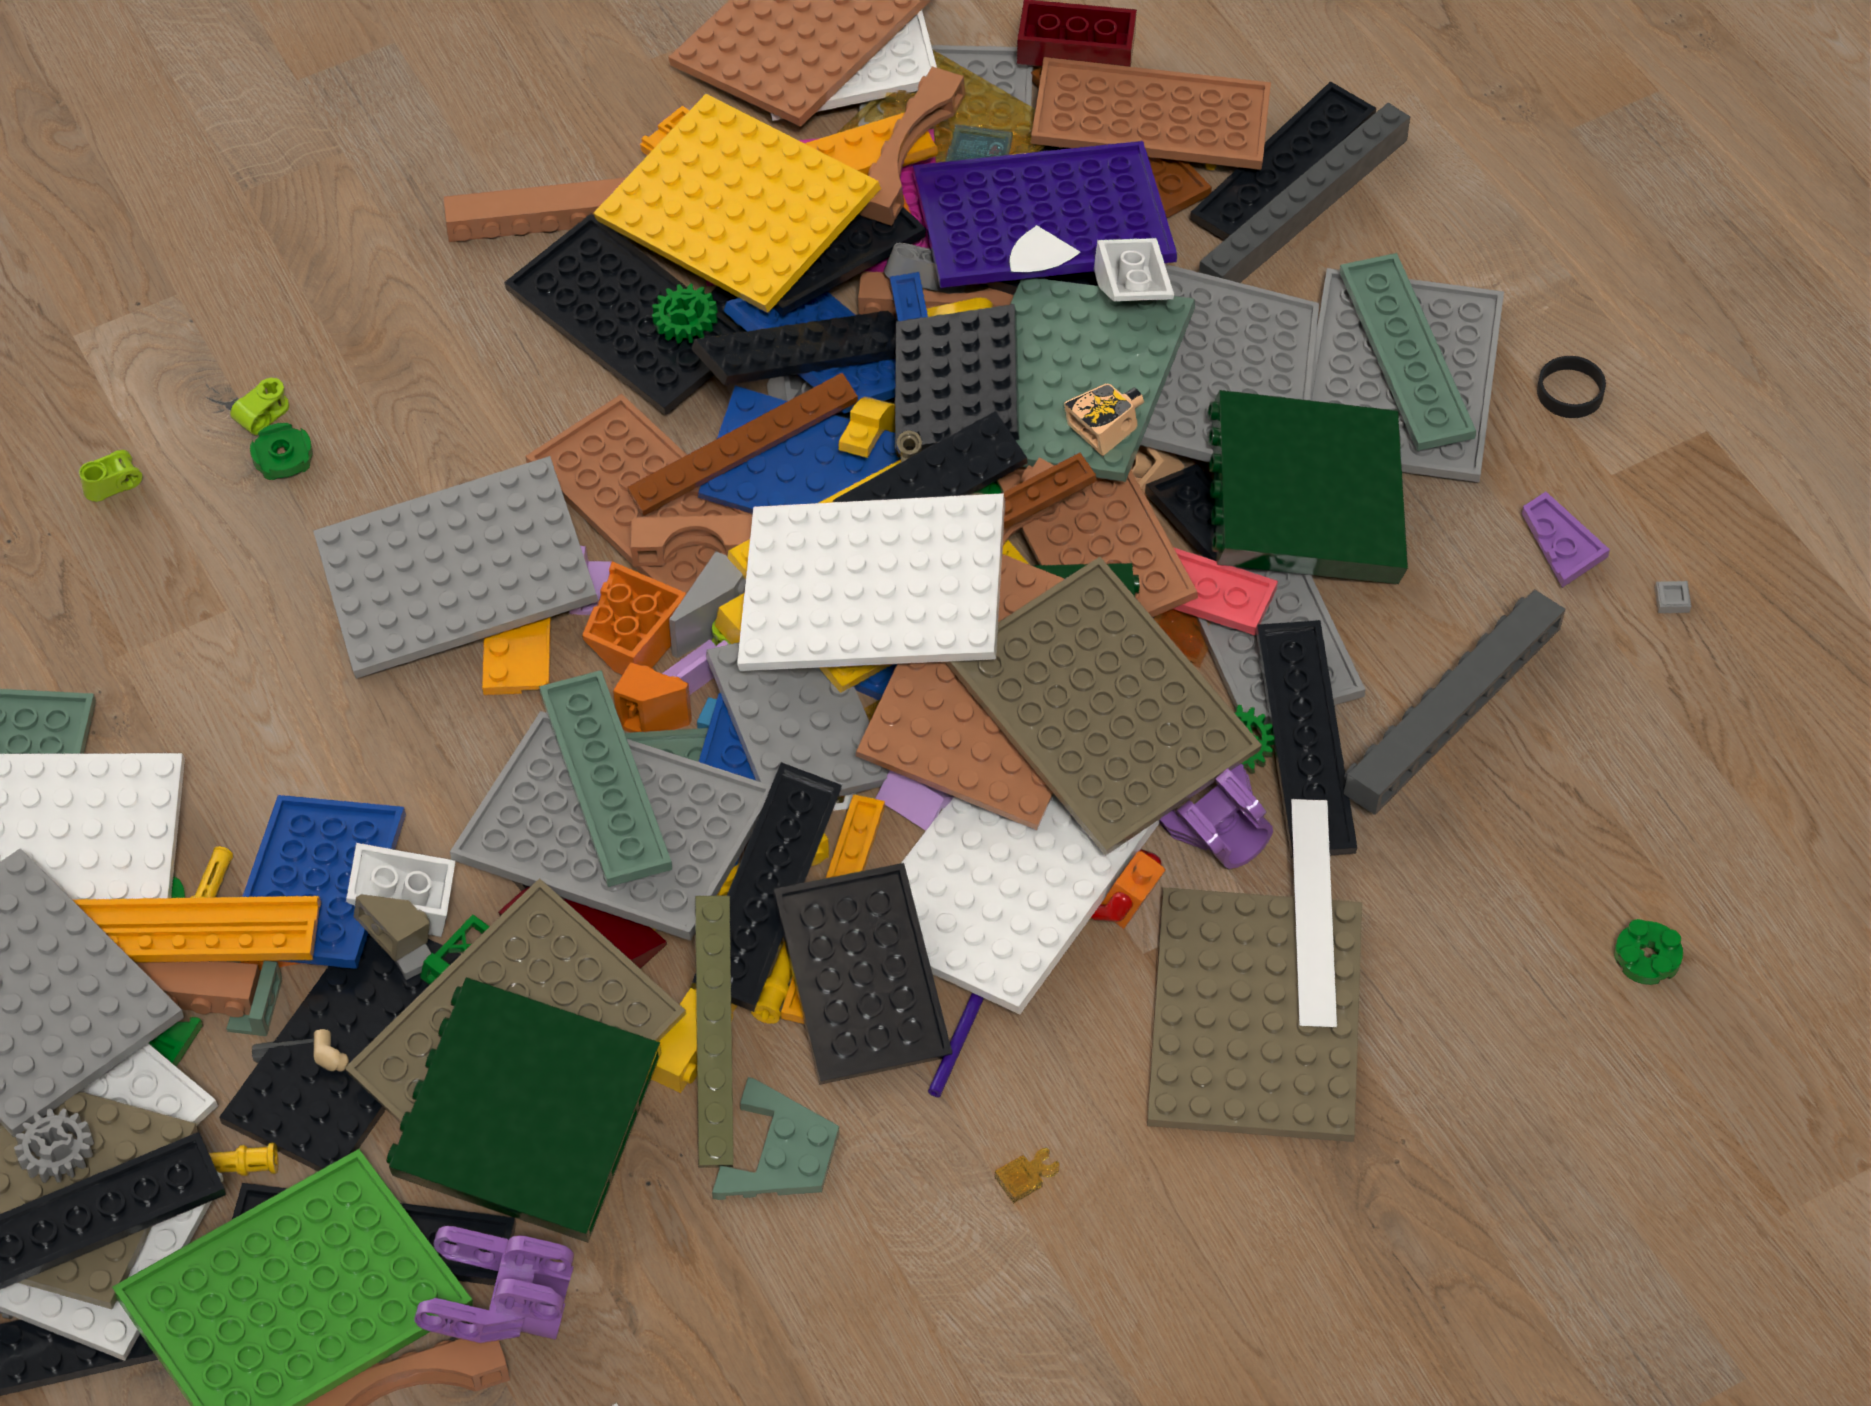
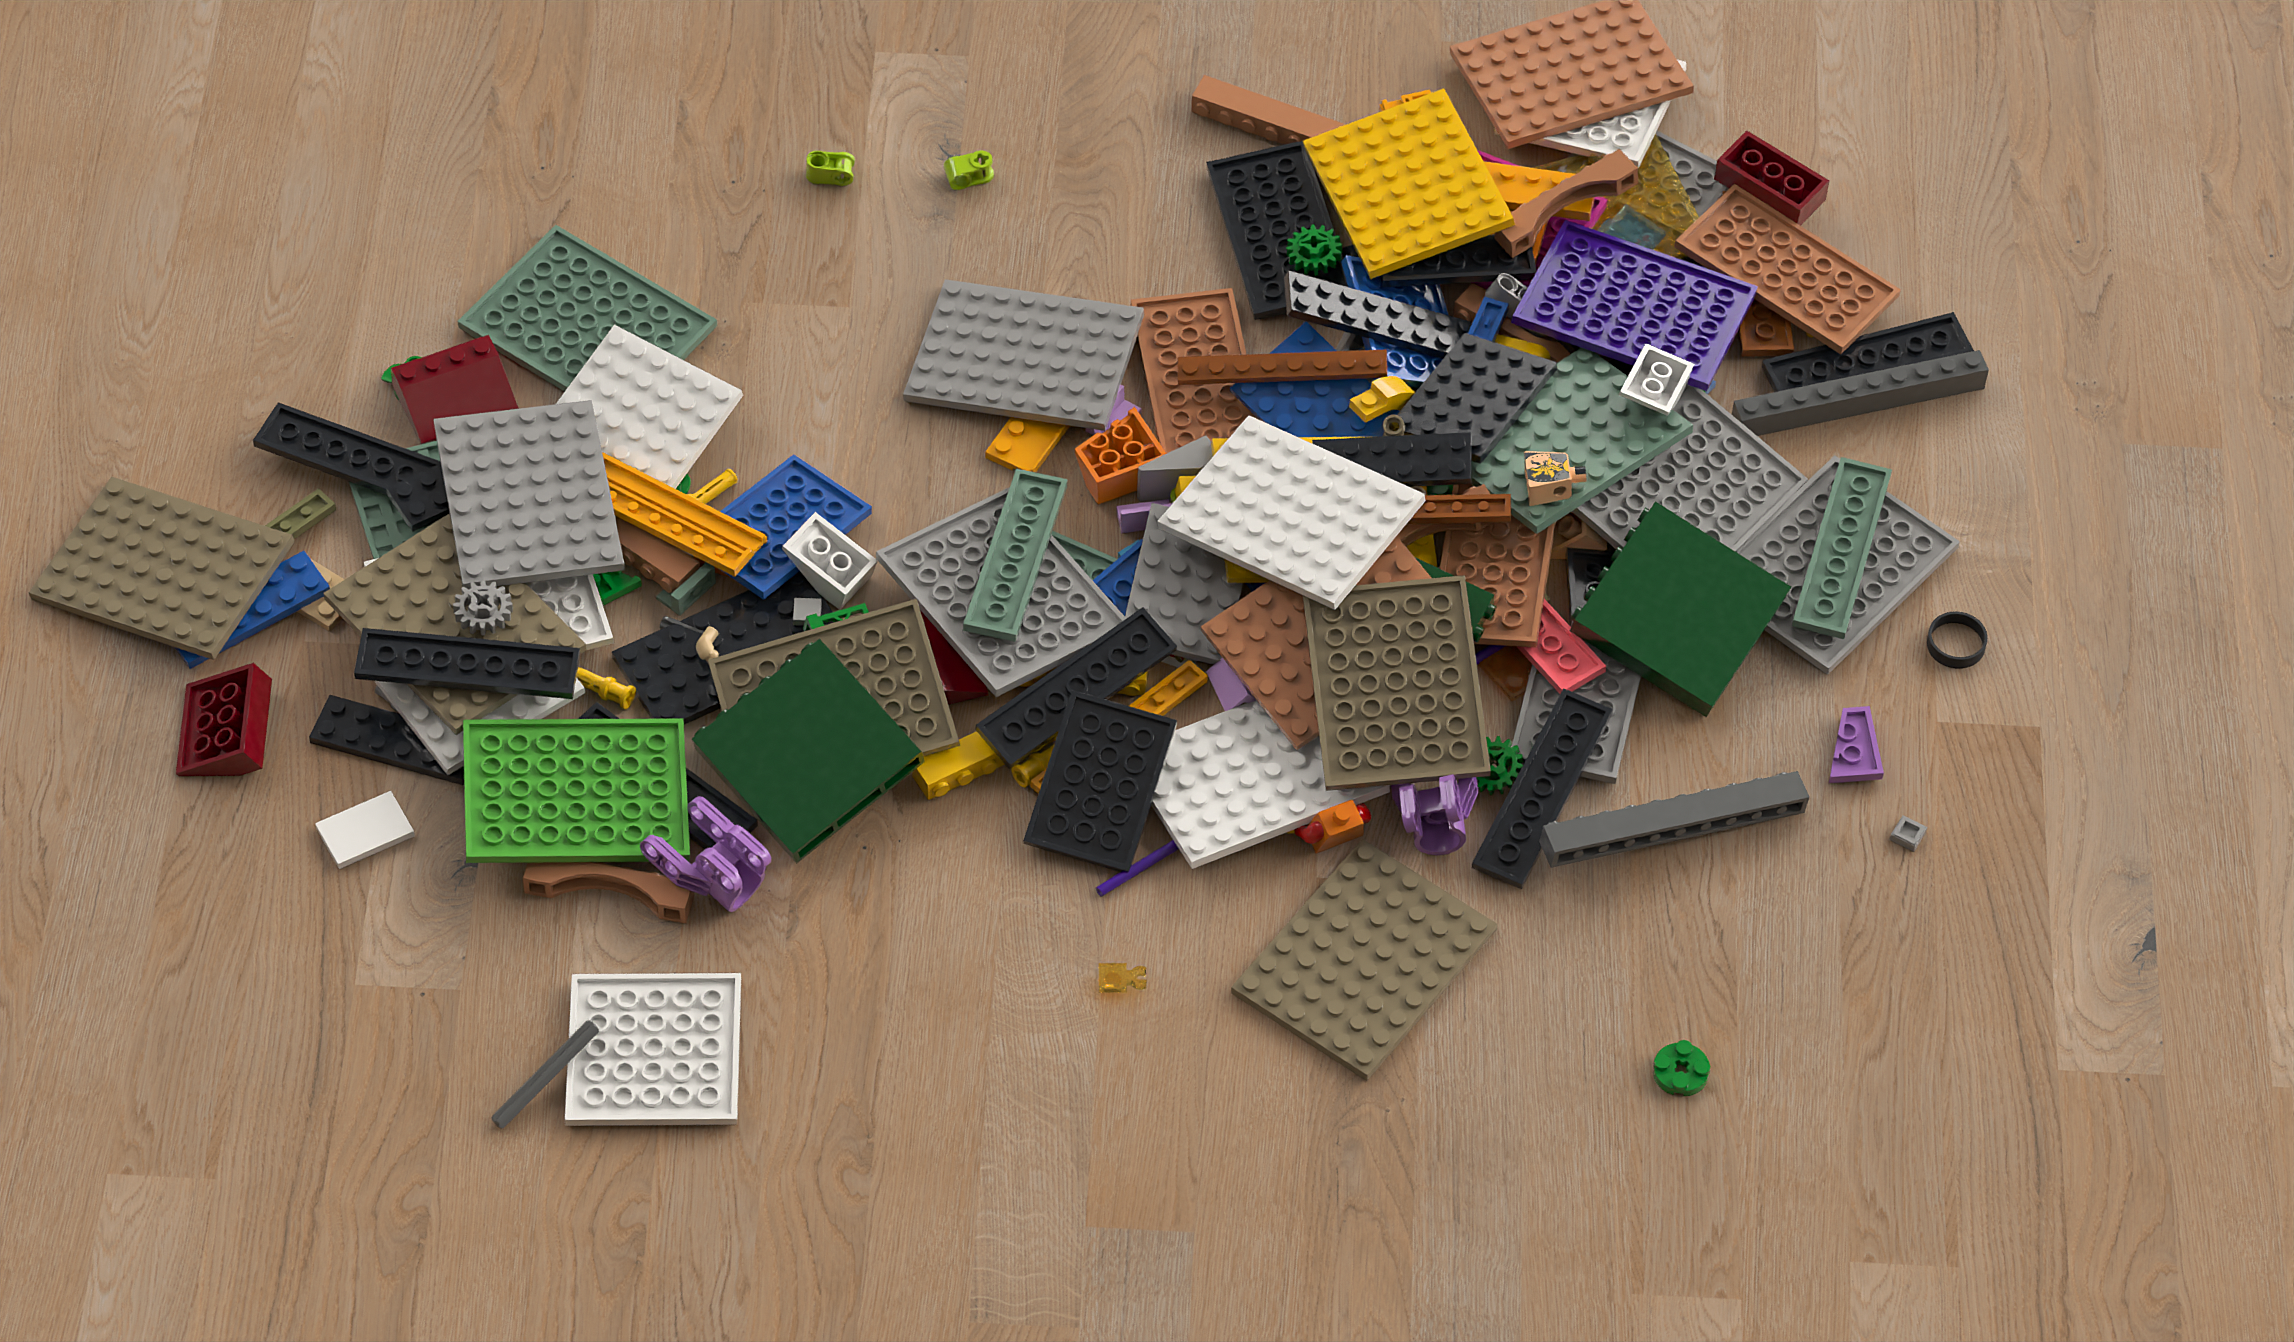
camera: 30 degrees right, 0 degrees up
(286, 464) = (966, 221): green plate -> none
(392, 923) = (804, 580): dark tan slope -> none
(651, 700) = (1090, 520): orange slope -> none
(659, 537) = (1177, 406): nougat arch -> none
(714, 1031) = (969, 766): olive plate -> none
(794, 1152) = (973, 880): sand green wing -> none
(1039, 251) = (1604, 332): white sticker -> none
(1313, 913) = (1453, 911): white sticker -> none

